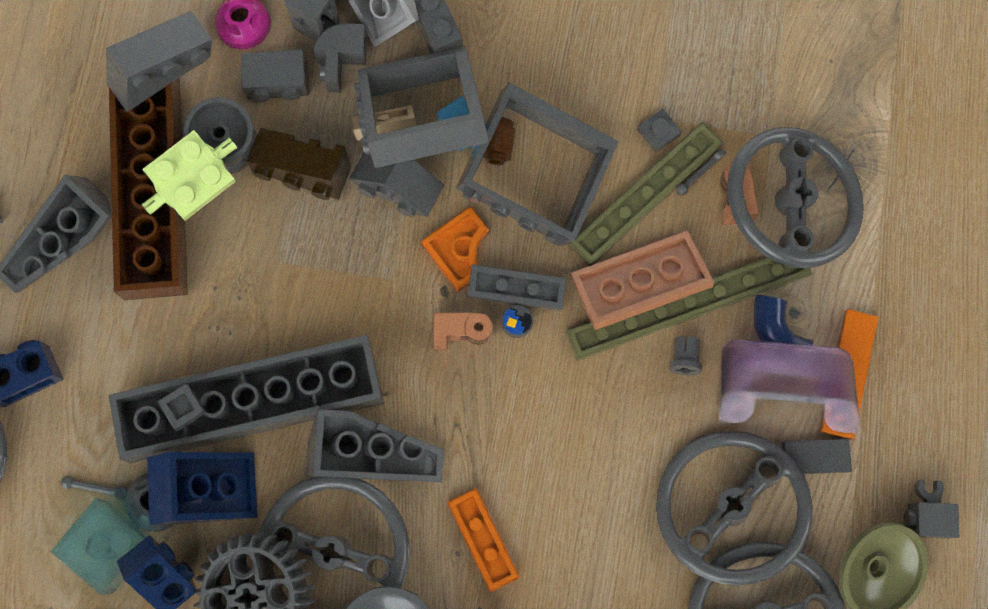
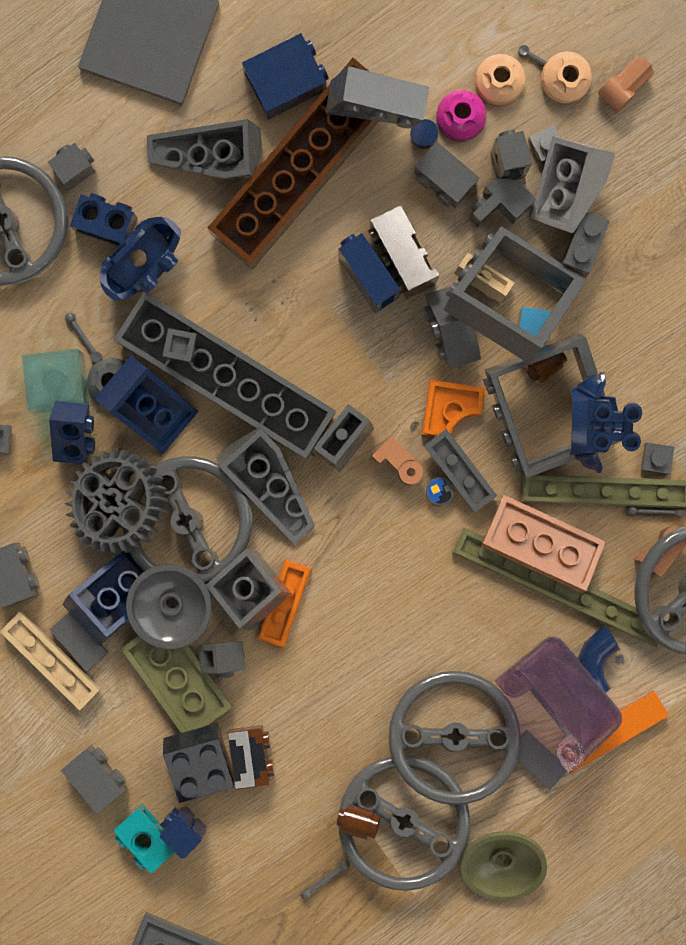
camera: 50 degrees right, 10 degrees up
(66, 119) = (285, 75): none -> dark blue brick
(80, 343) = (158, 240): none -> dark blue piece
(189, 175) = (324, 197): yellowish green plate -> none
(225, 61) = (424, 134): none -> dark blue tile
(225, 118) = (354, 180): dark grey wheel -> none
(285, 203) = (368, 272): none -> dark blue brick
(396, 352) = (344, 438): none -> dark grey brick
(440, 556) = (248, 589): none -> dark grey brick
(589, 135) = (599, 422): none -> dark blue piece
(686, 356) = (522, 618): dark grey bush -> none
(931, 516) = (569, 866): dark grey brick -> none

